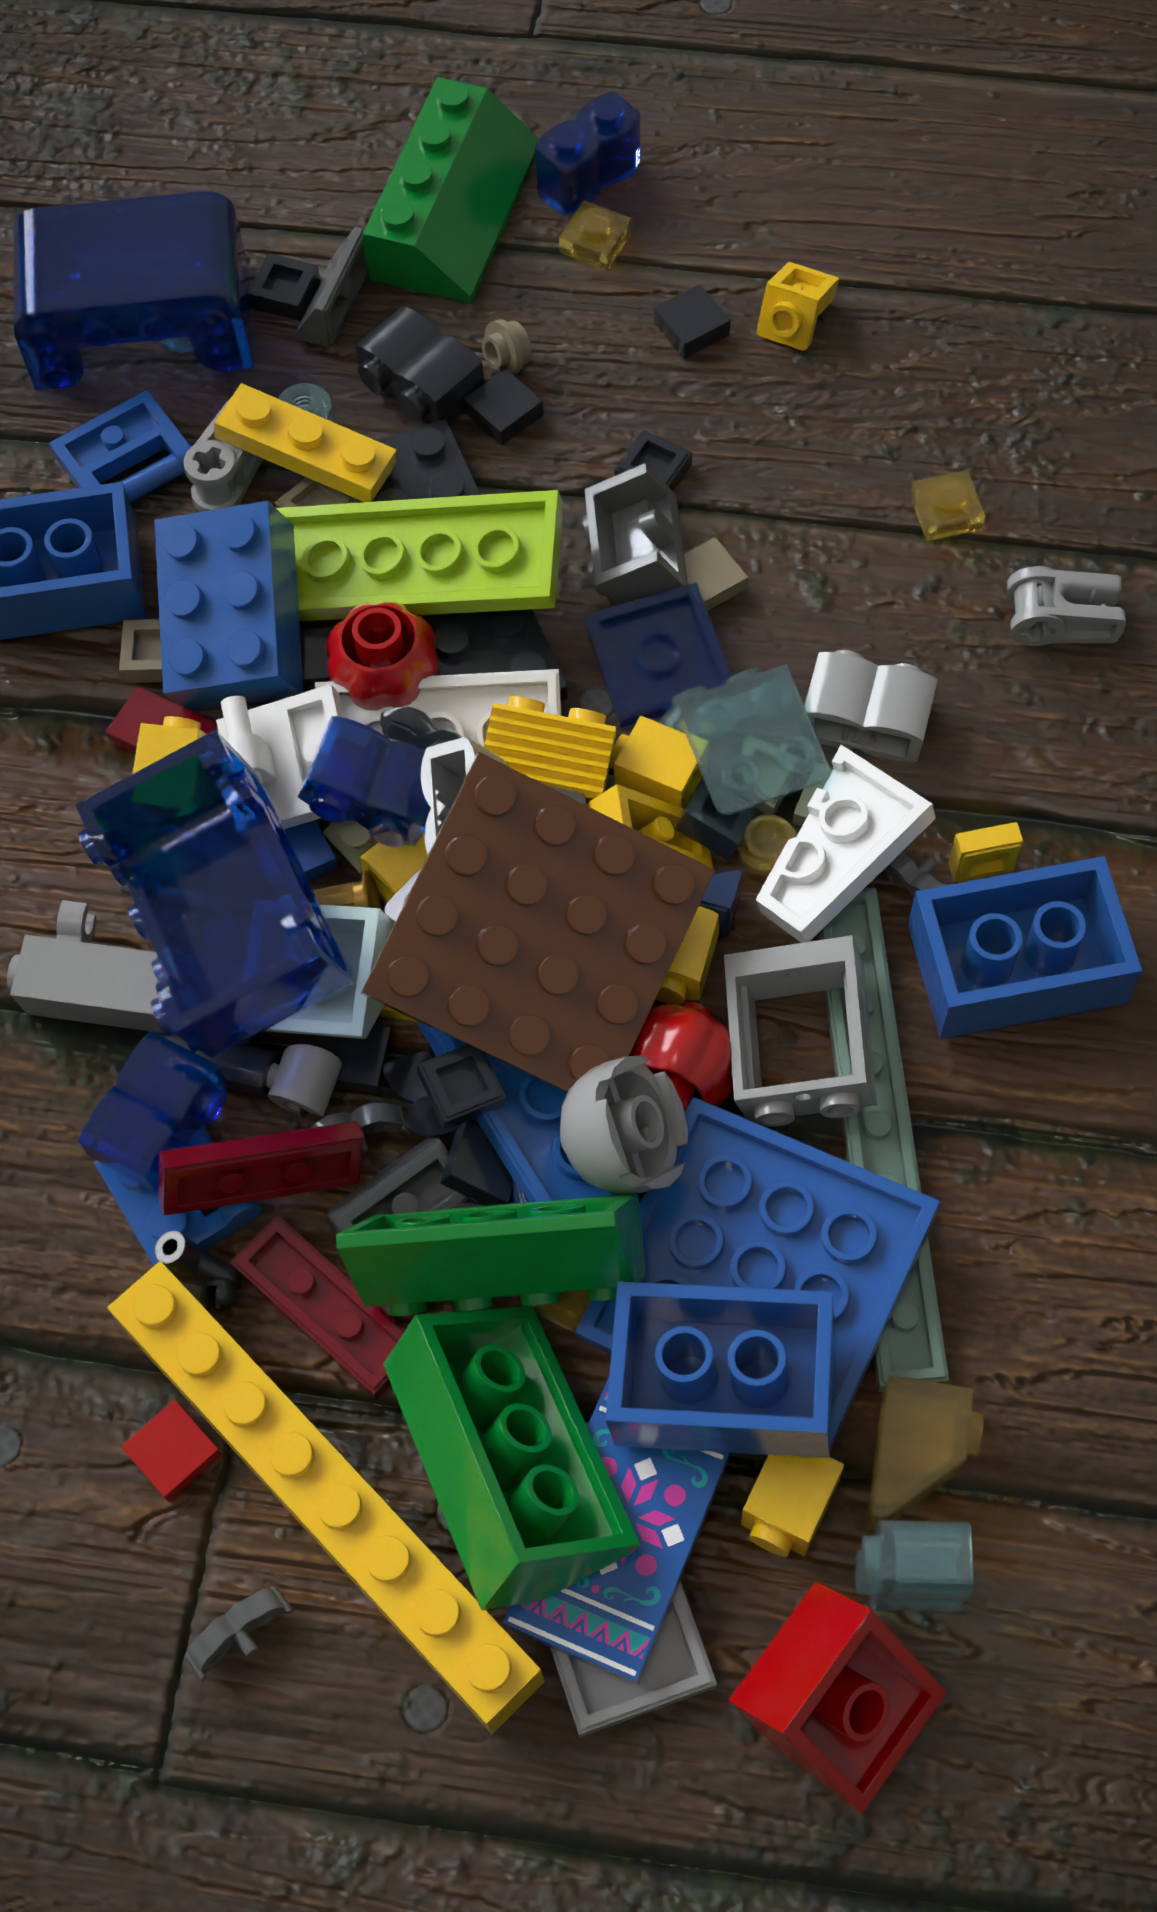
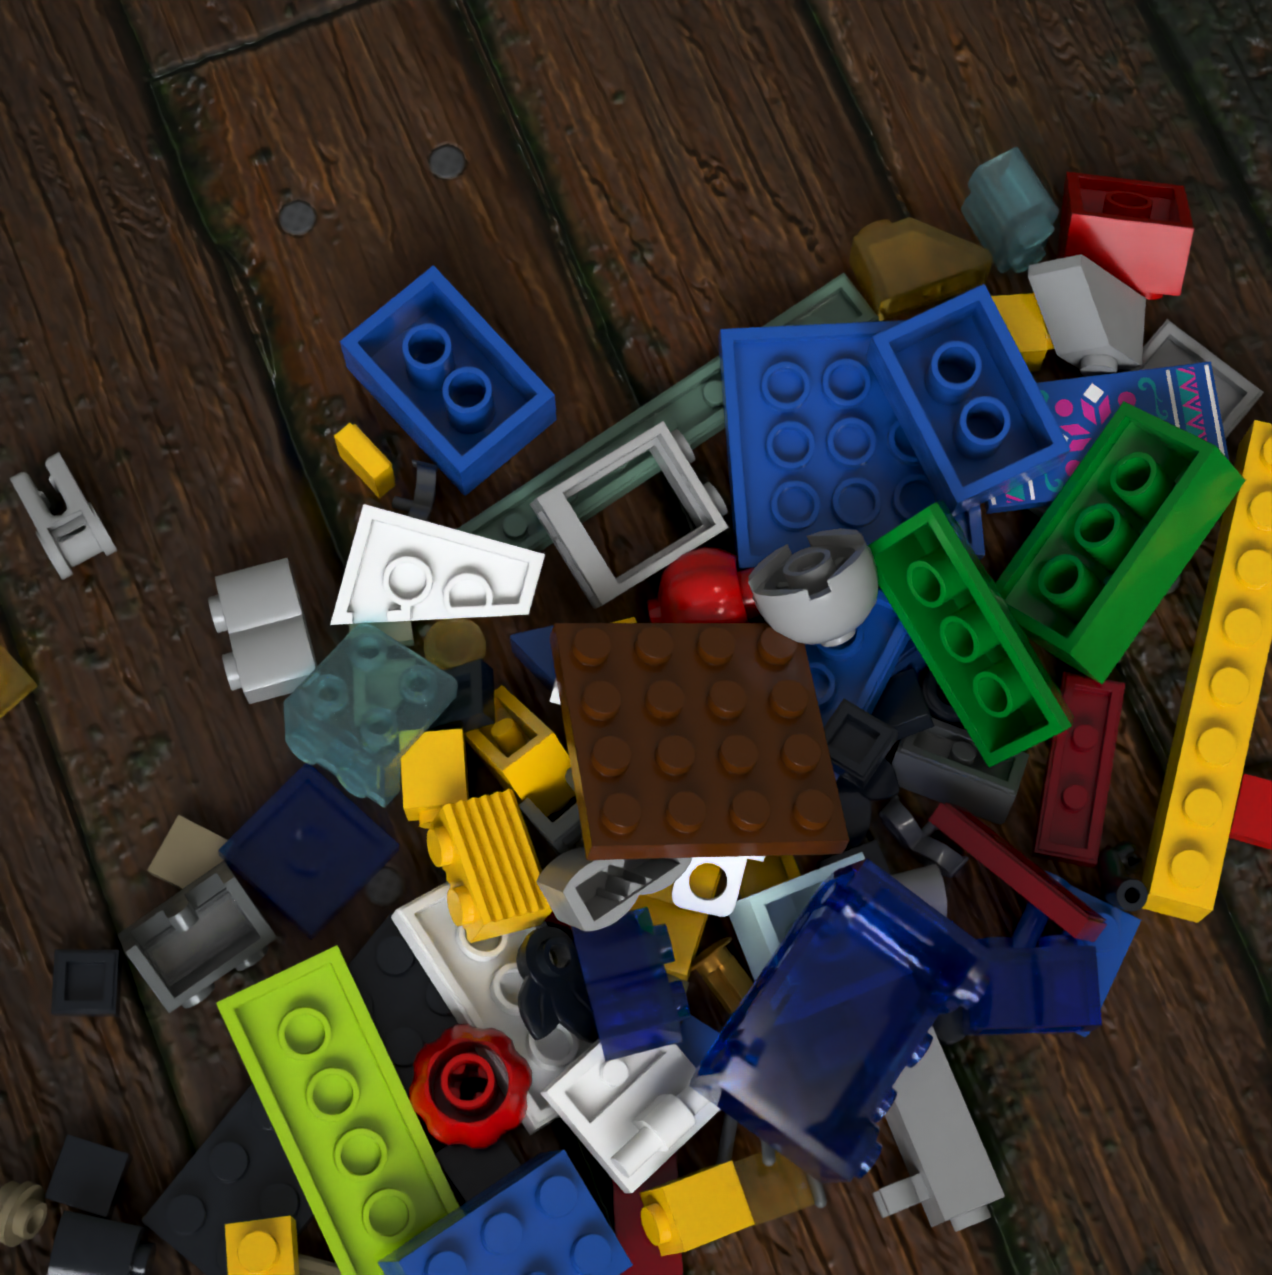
camera: 125 degrees left, 10 degrees up
(751, 1580) = (1089, 315): none -> light grey slope

